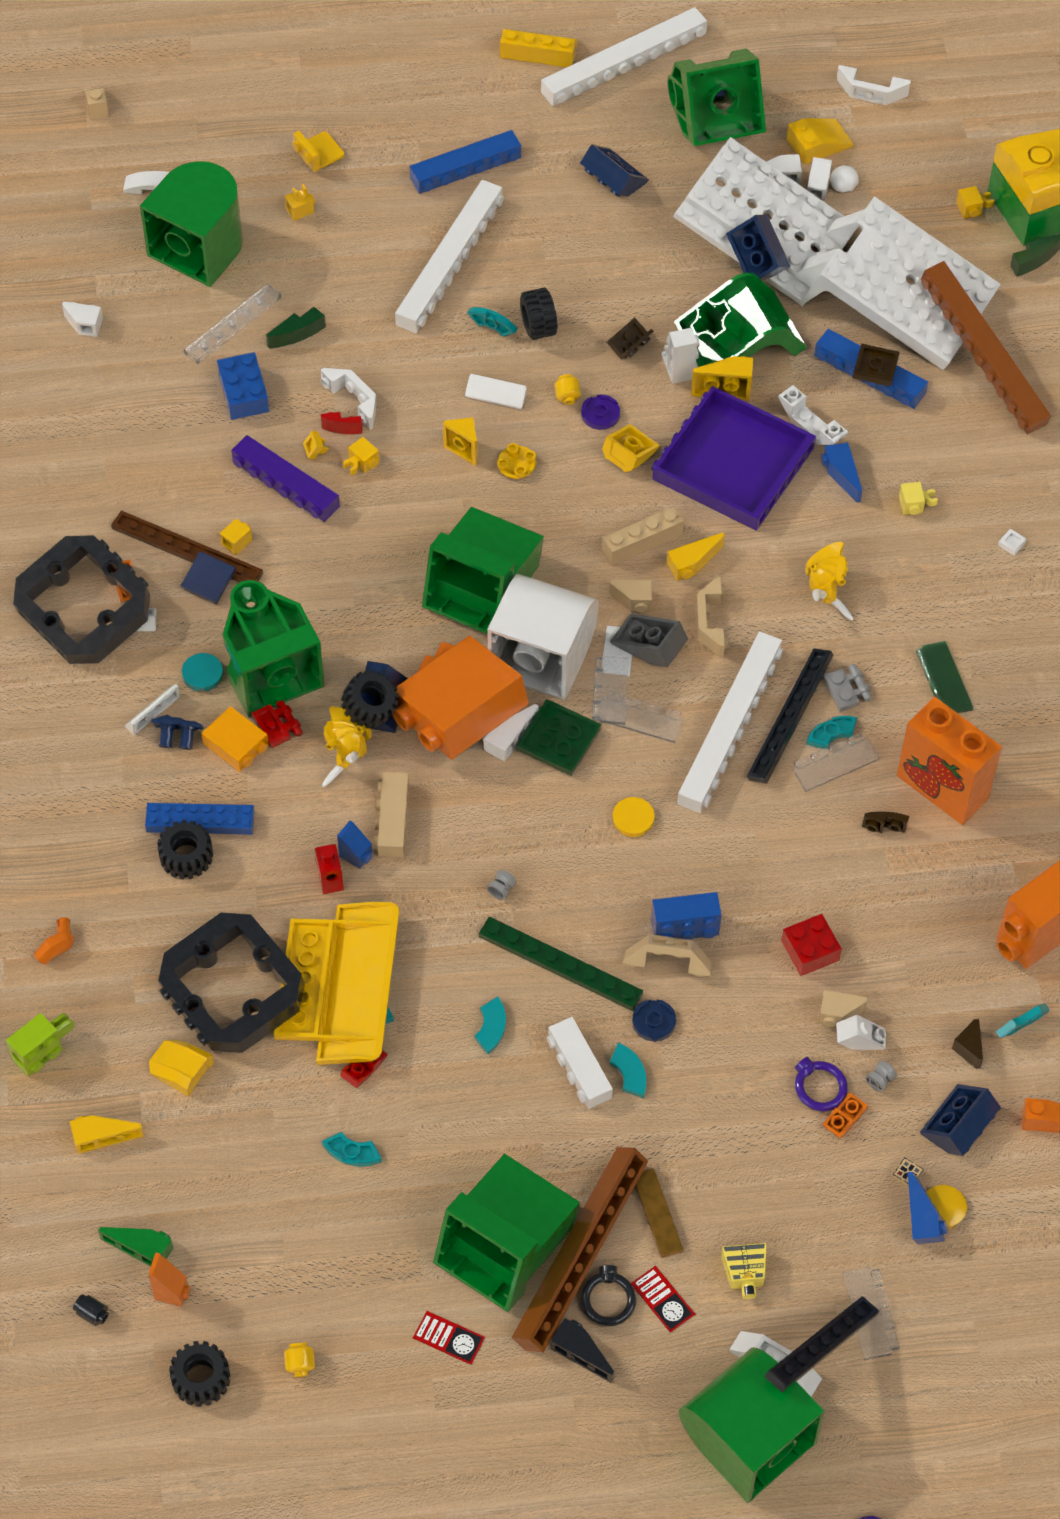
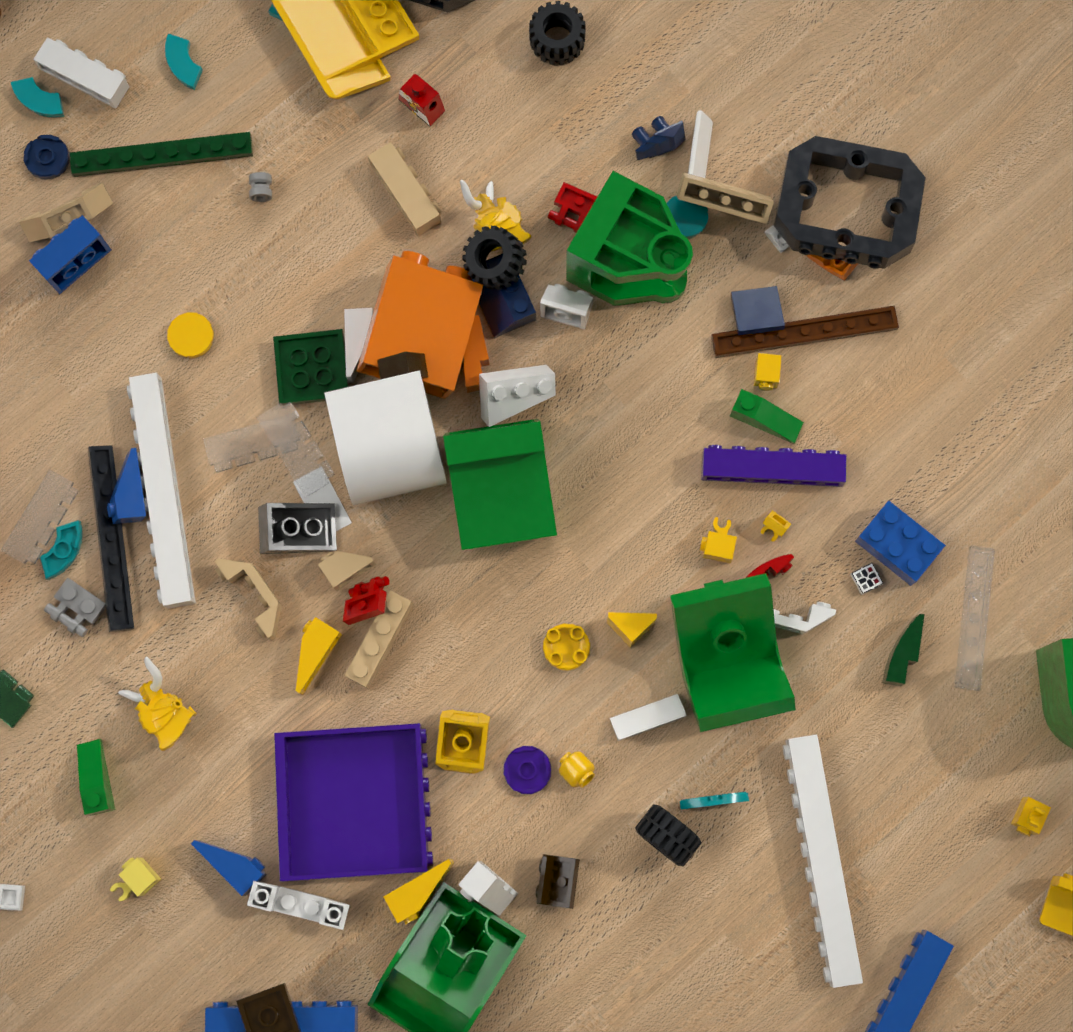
camera: 150 degrees right, 20 degrees up
(167, 653) = (724, 198): none -> tan brick
(213, 817) = (571, 76): blue piece -> none
(235, 739) = (595, 162): light orange brick -> none
(264, 513) = (766, 416): none -> green slope
(282, 384) = (866, 578): none -> tile
(341, 656) = (566, 305): none -> white slope
(354, 845) = (412, 131): blue slope -> none
(415, 377) = (731, 652): none -> green piece
(424, 623) = (514, 391): none -> white wedge
(496, 656) = (402, 364): none -> dark brown slope
(637, 553) = (366, 601): none -> red plate
(756, 732) = (127, 498): none -> blue slope
(905, 572) = (94, 779): none -> green slope

